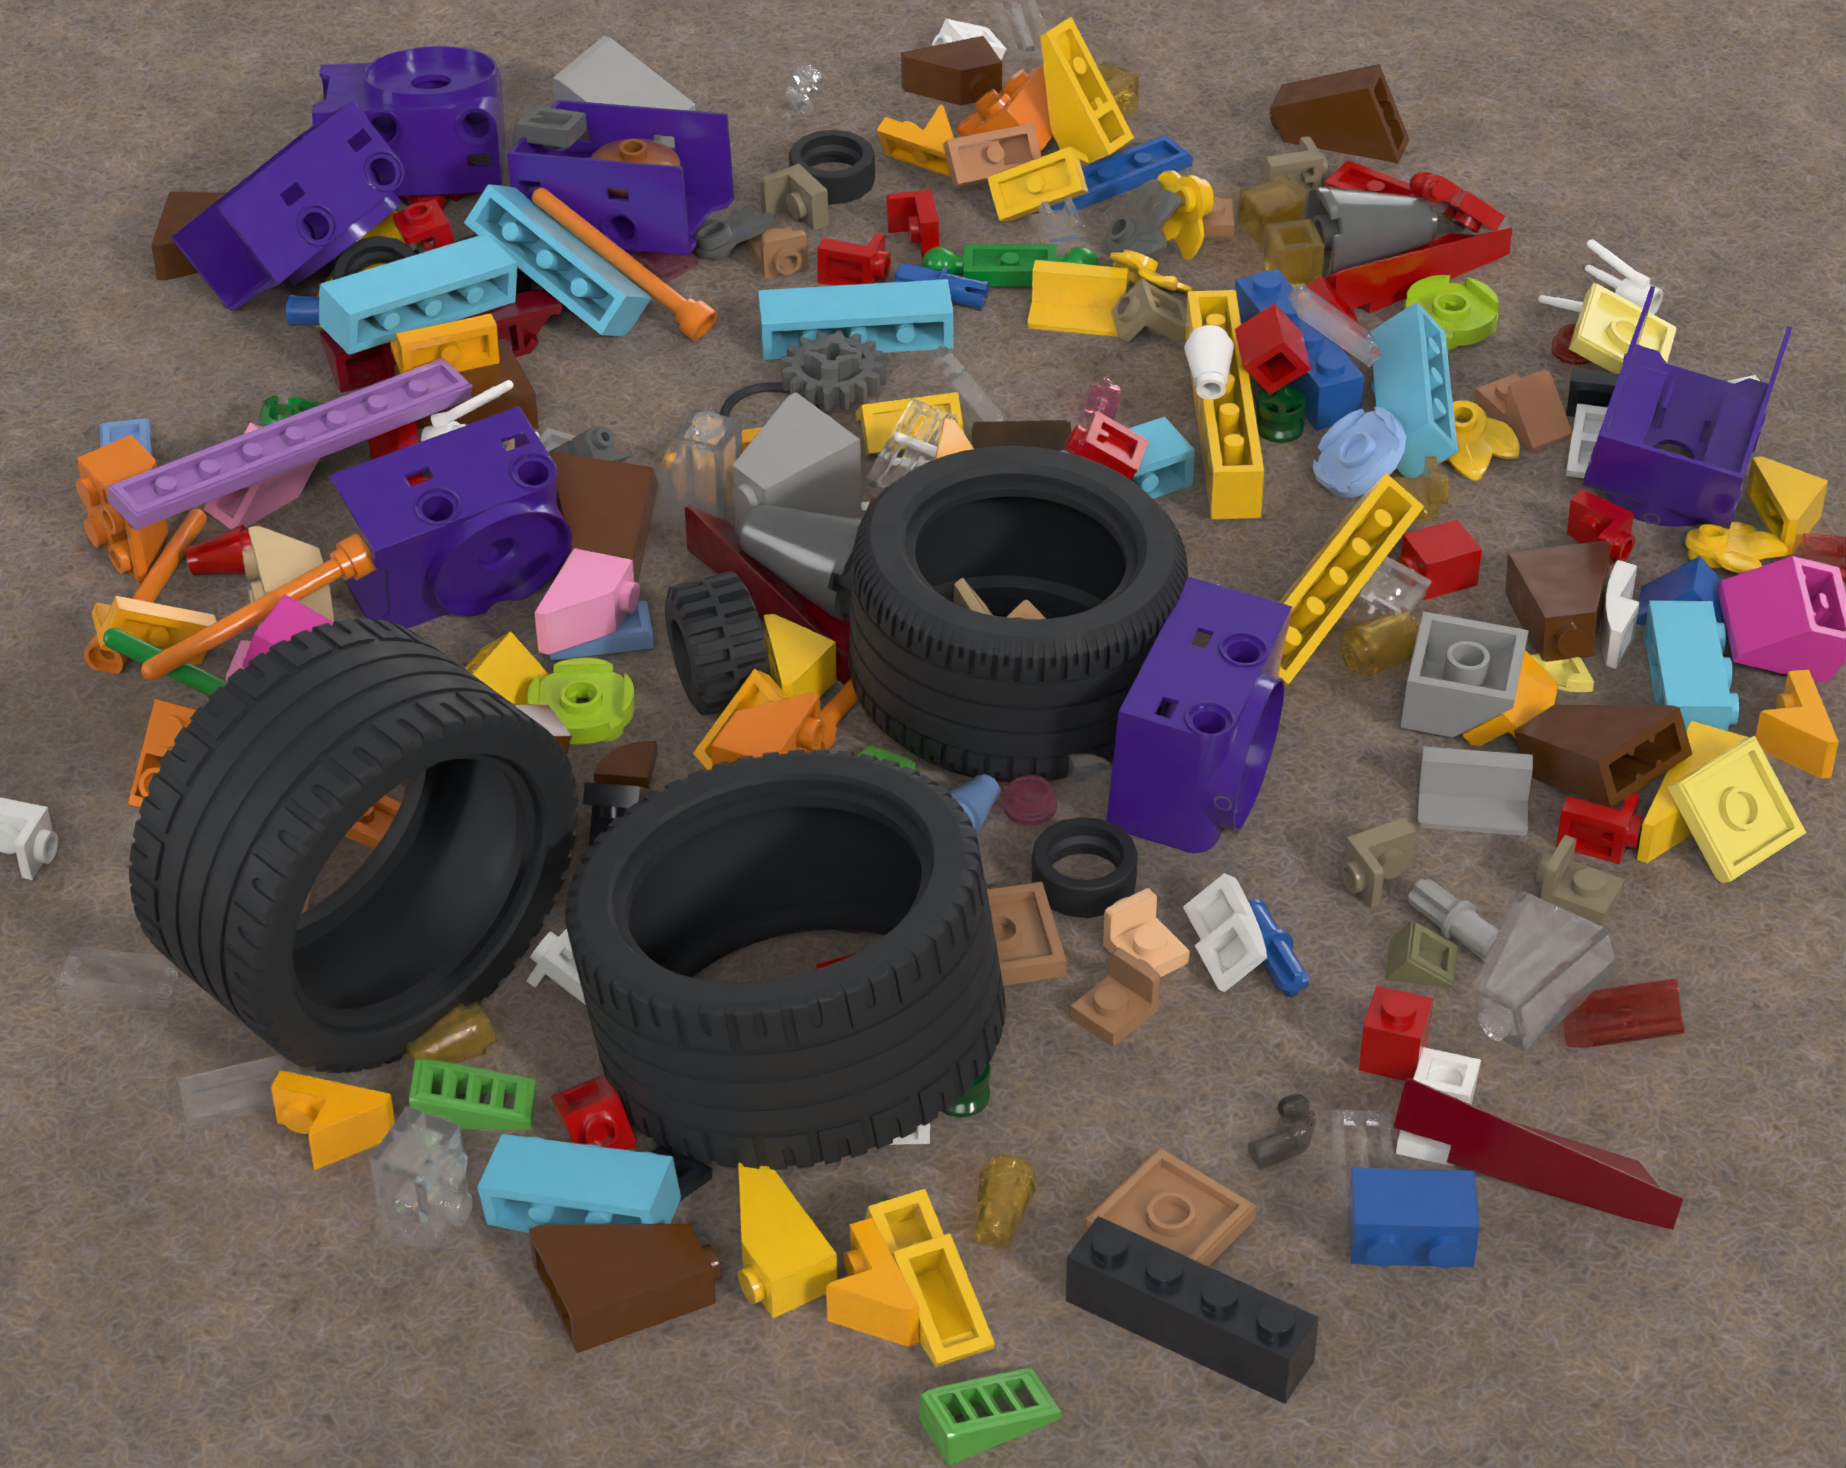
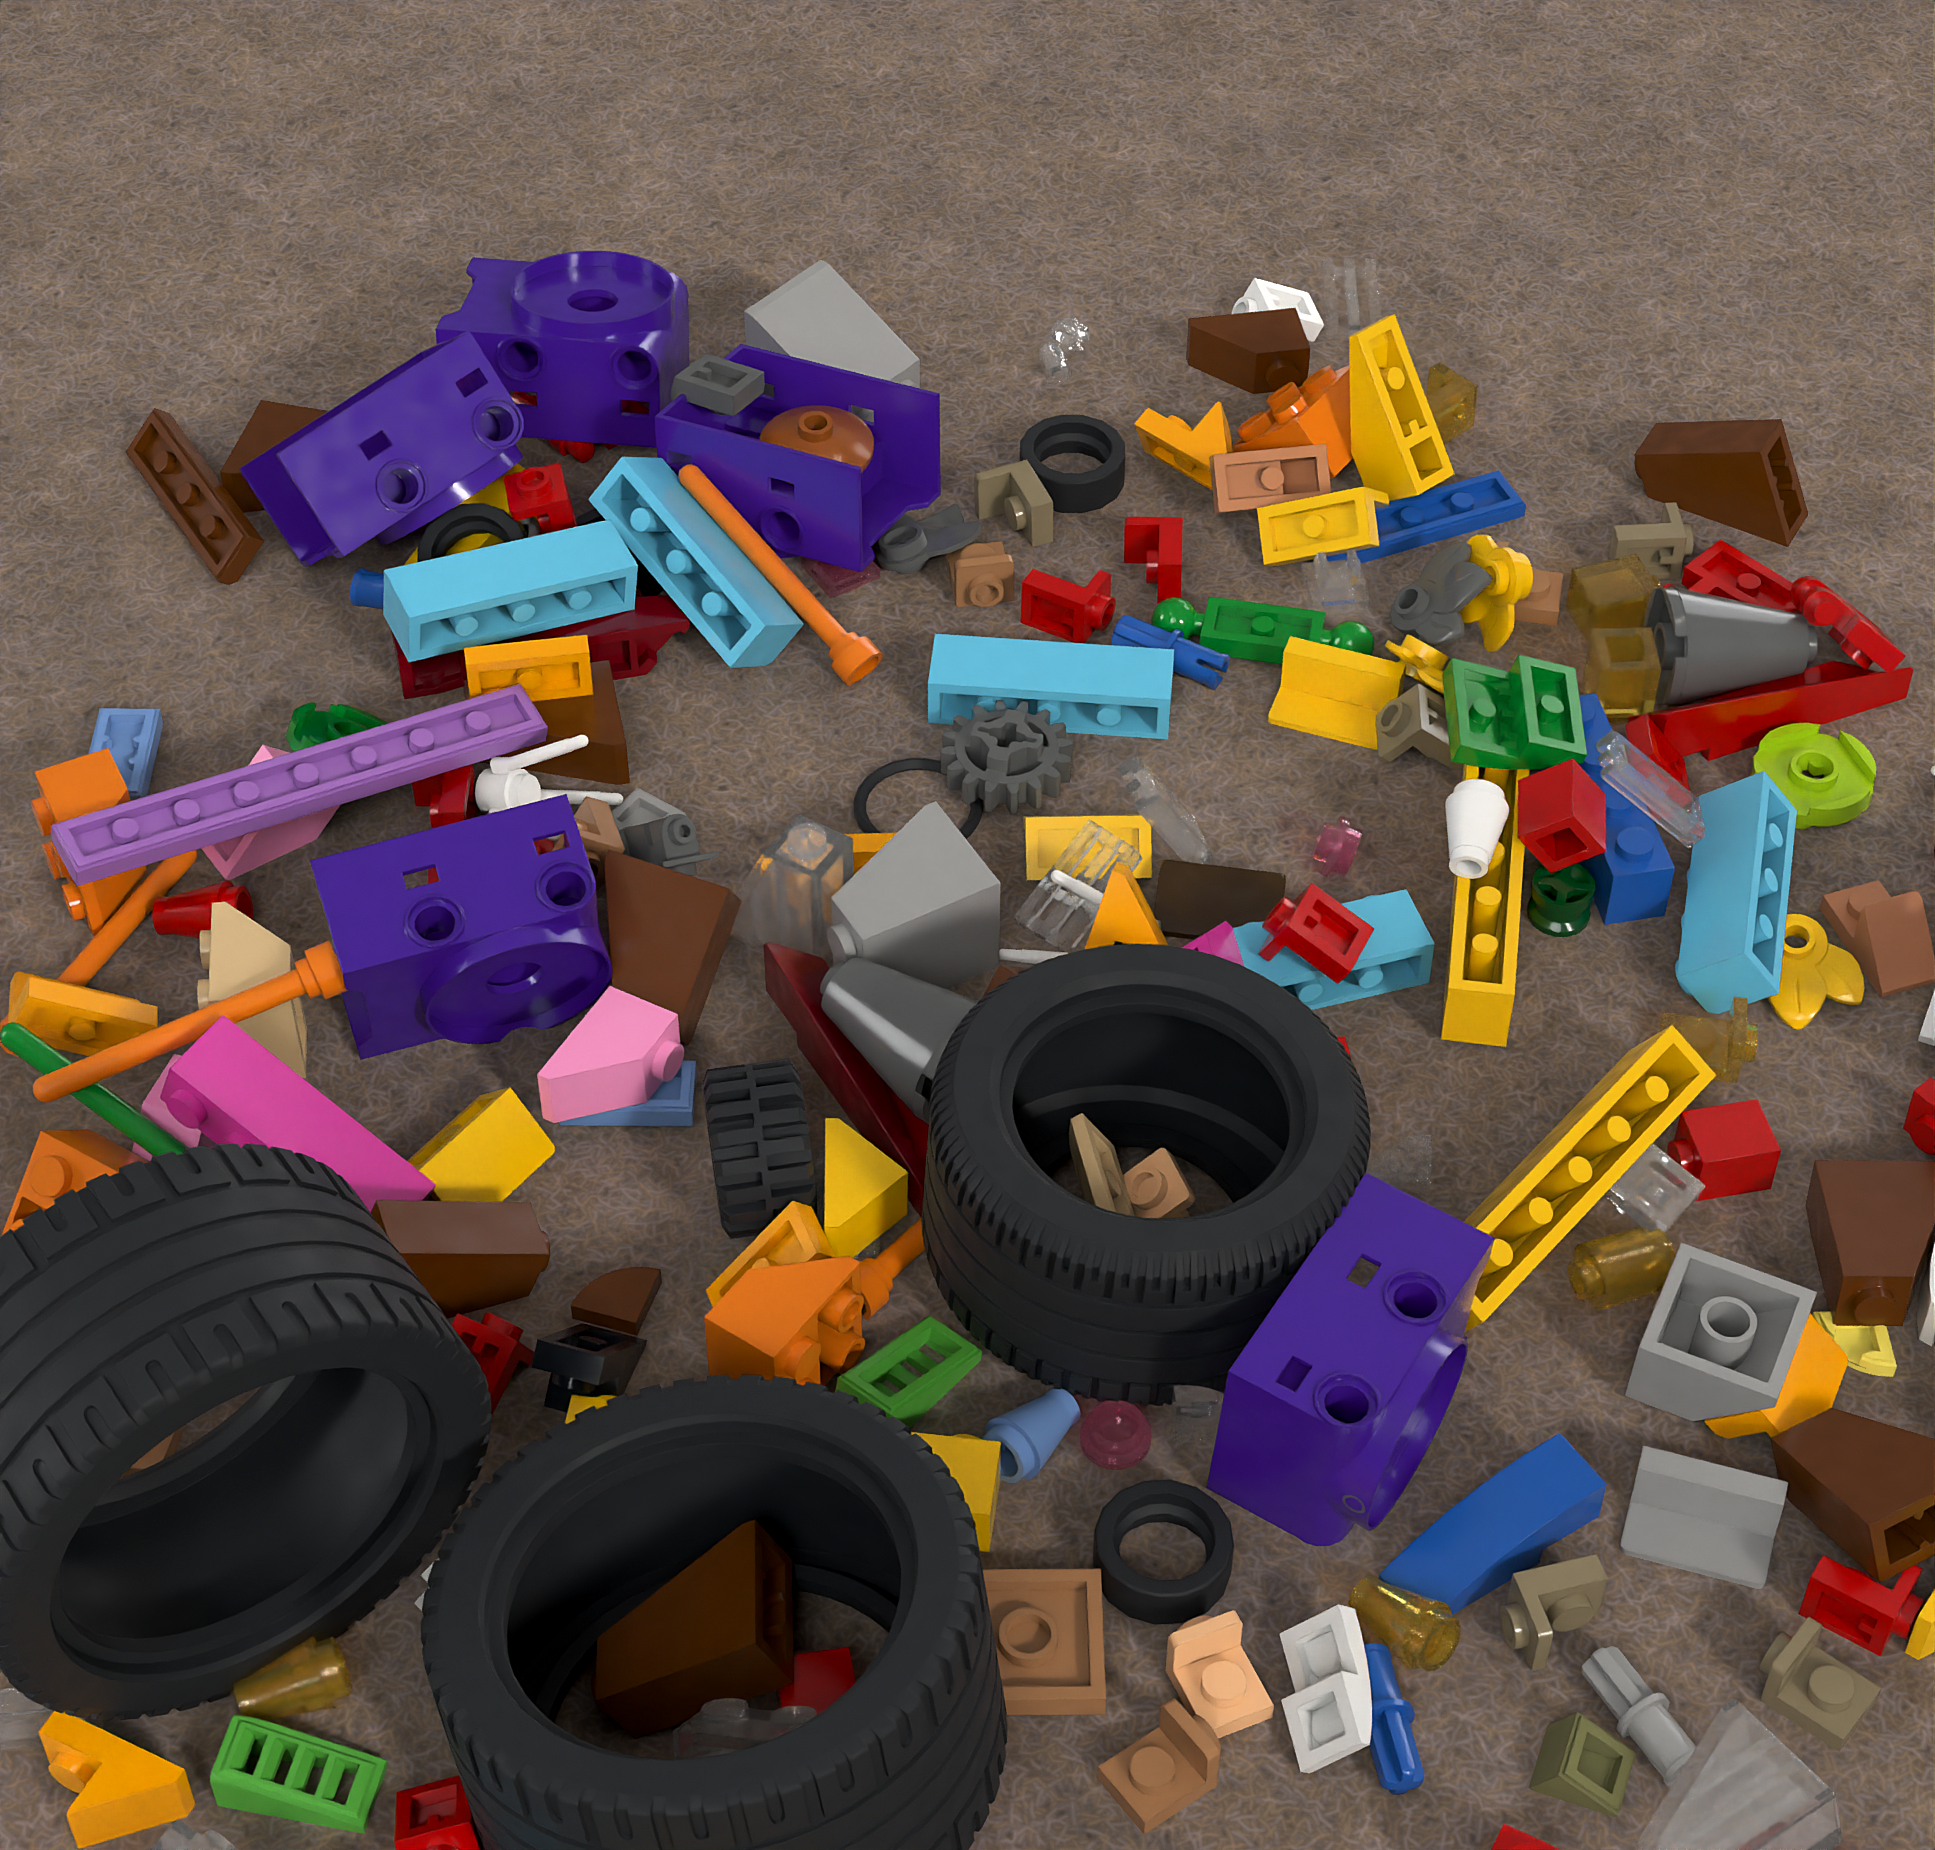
camera: 10 degrees right, 5 degrees up
(130, 269) = (194, 497): none -> reddish brown tile
(608, 694) = (589, 1226): lime plate -> none
(766, 938) = (701, 1637): none -> reddish brown slope
(1220, 288) = (1513, 716): none -> green slope
(1281, 885) = (1410, 1624): none -> clear yellow cone
(1319, 822) = (1501, 1526): none -> blue slope
(1359, 452) = (1650, 975): light blue tile -> none

